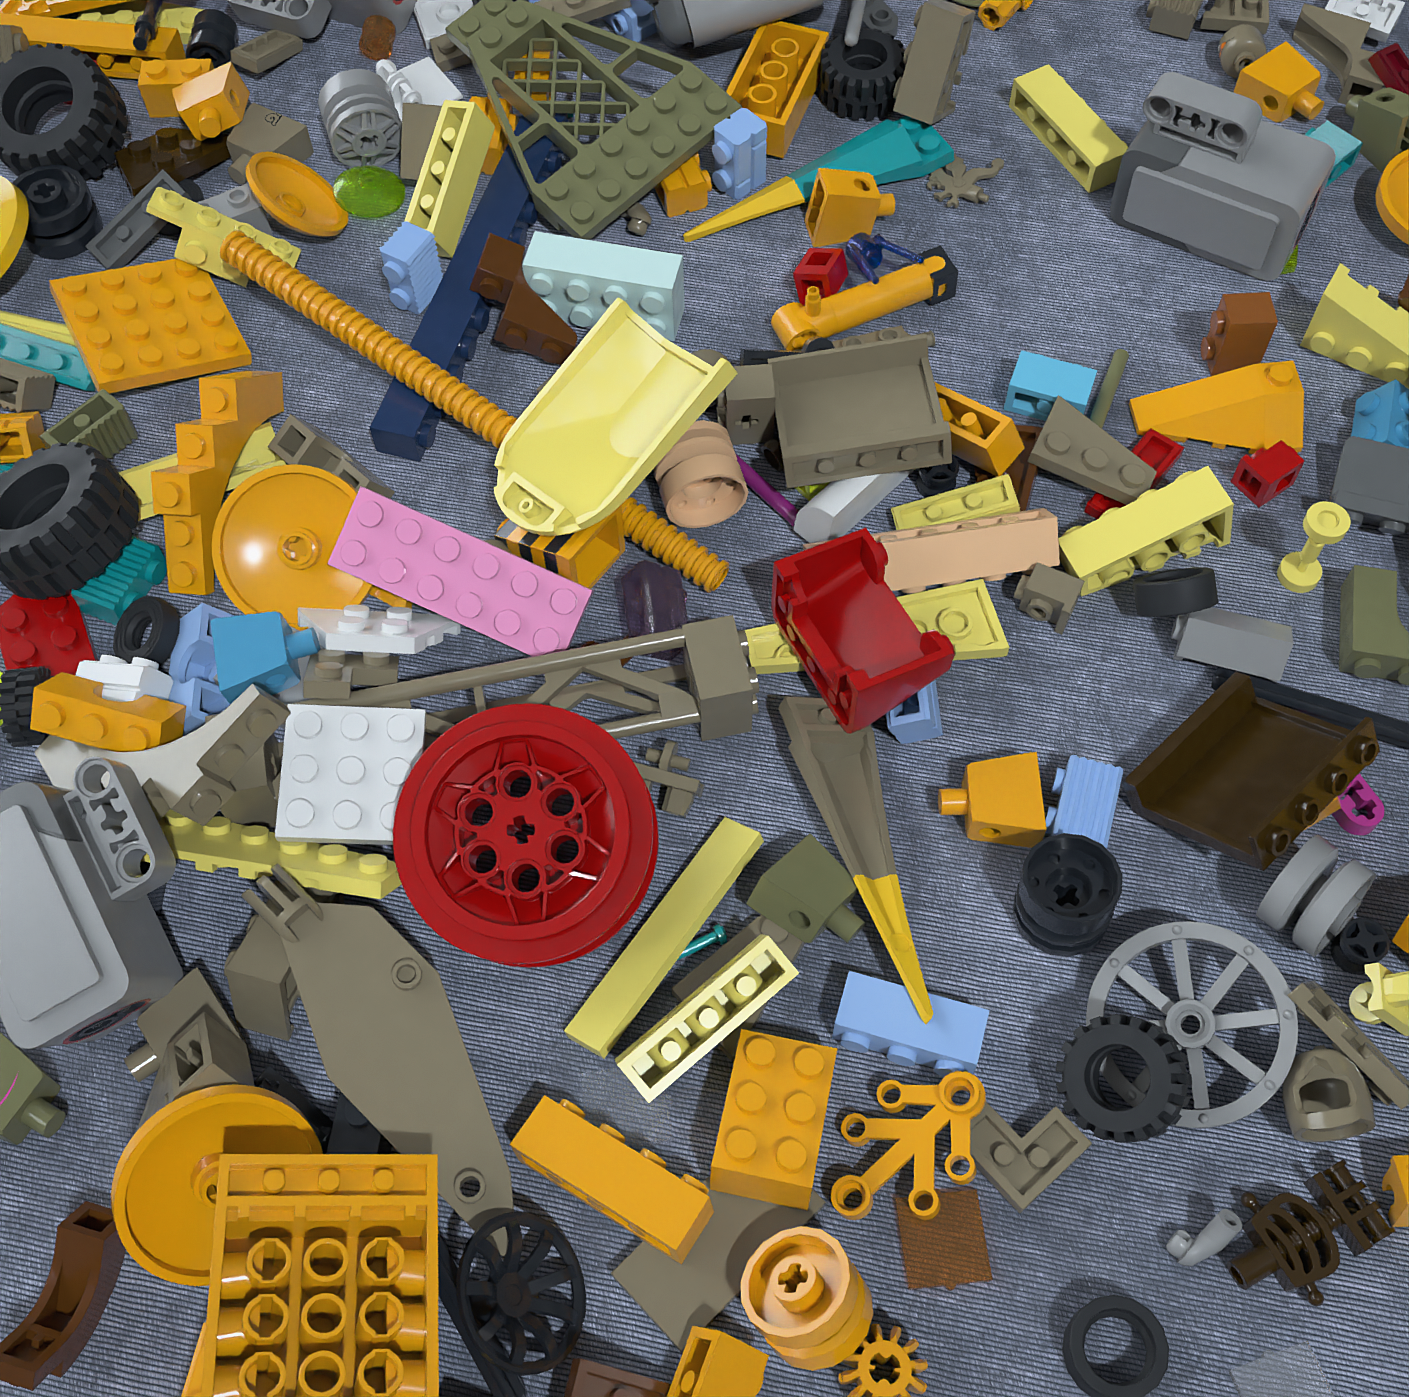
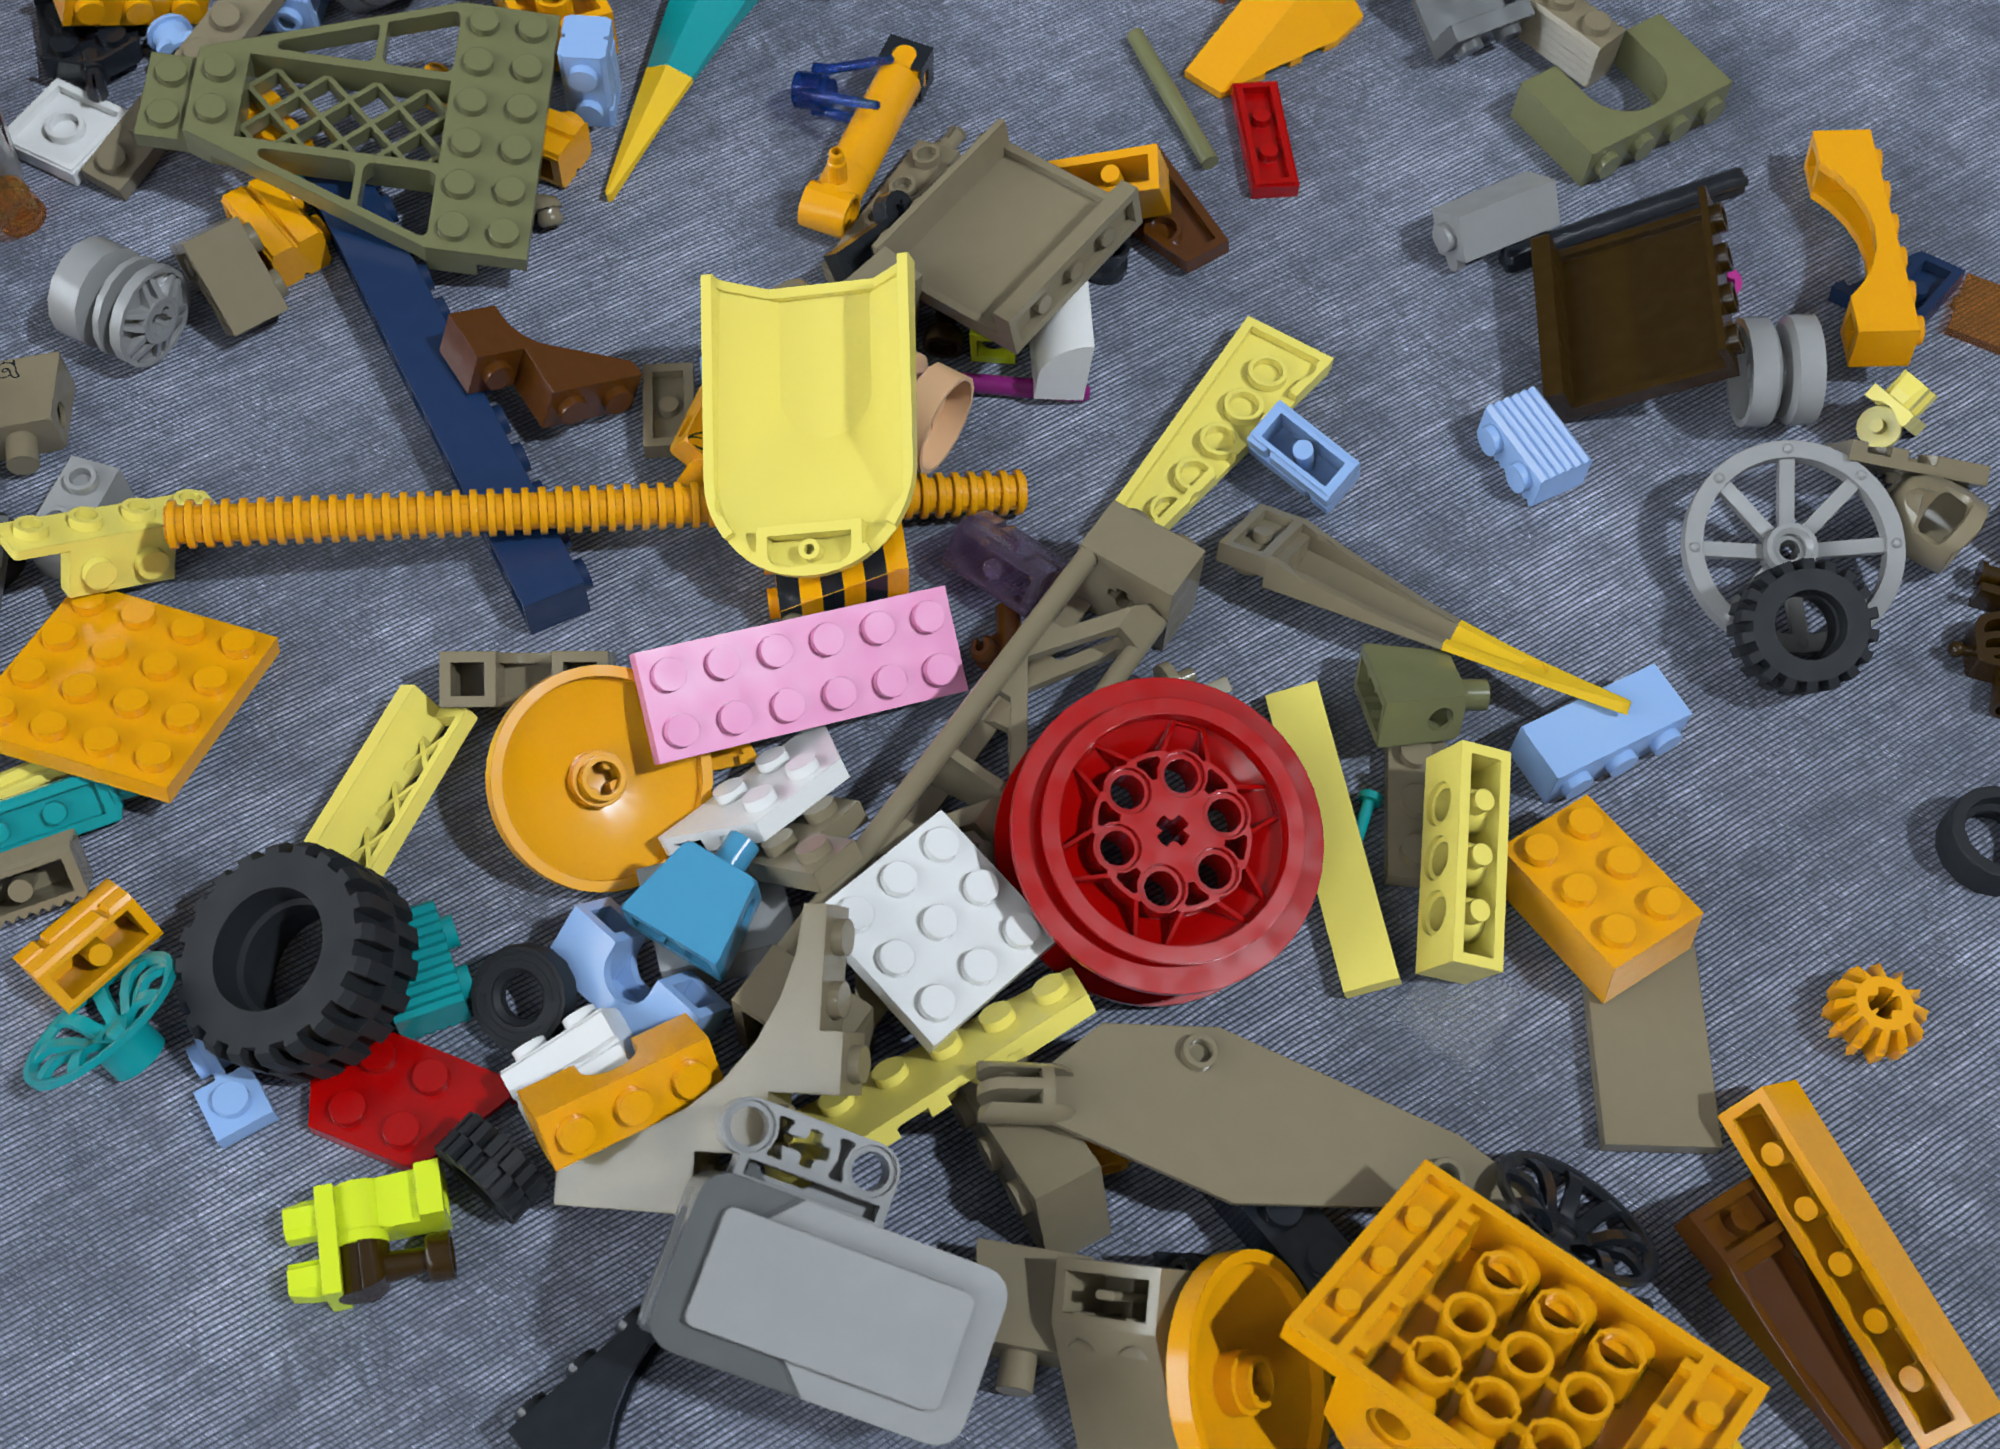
camera: 50 degrees left, 0 degrees up
(97, 423) = (199, 846): olive brick -> none
(206, 453) = (415, 784): light orange arch -> none
(295, 195) = (142, 435): light orange dish -> none
(369, 191) = (201, 378): clear neon green dish -> none
(411, 267) = (373, 416): light blue brick -> none
(417, 83) = (132, 221): white hinge -> none
(450, 173) = (311, 295): light yellow brick -> none
(586, 276) = (610, 286): light aqua brick -> none
(613, 1177) = (1531, 1063): light orange brick -> none
(806, 1298) = (1772, 971): light orange wheel -> none
(823, 269) = (796, 142): red brick -> none
(844, 206) = (747, 60): light orange torso -> none
(854, 629) = (1223, 440): red windscreen -> none
(915, 1140) = (1708, 816): light orange plant -> none
(947, 1247) = (1795, 879): clear orange piece -> none
(968, 502) = (1158, 274): light yellow tile -> none
(968, 549) = (1185, 329): light nougat brick -> none
(999, 801) = (1467, 493): light orange torso -> none
(1028, 1164) = (1787, 768): dark tan plate -> none
(1041, 379) = (1117, 106): medium azure brick -> none
(1049, 595) = (1316, 289): dark tan brick -> none
(1072, 873) = (1607, 522): black wheel -> none
(1089, 455) = (1219, 141): dark tan wing -> none
(1149, 531) = (1337, 174): light yellow wedge -> none
(1175, 592) = (1416, 207): black tyre -> none
(1207, 1242) = (1965, 703): light grey arm -> none
(1267, 472) = (1366, 55): red brick -> none
(1324, 525) = (1491, 56): light yellow wheel -> none
(1366, 936) = (1839, 390): black wheel -> none

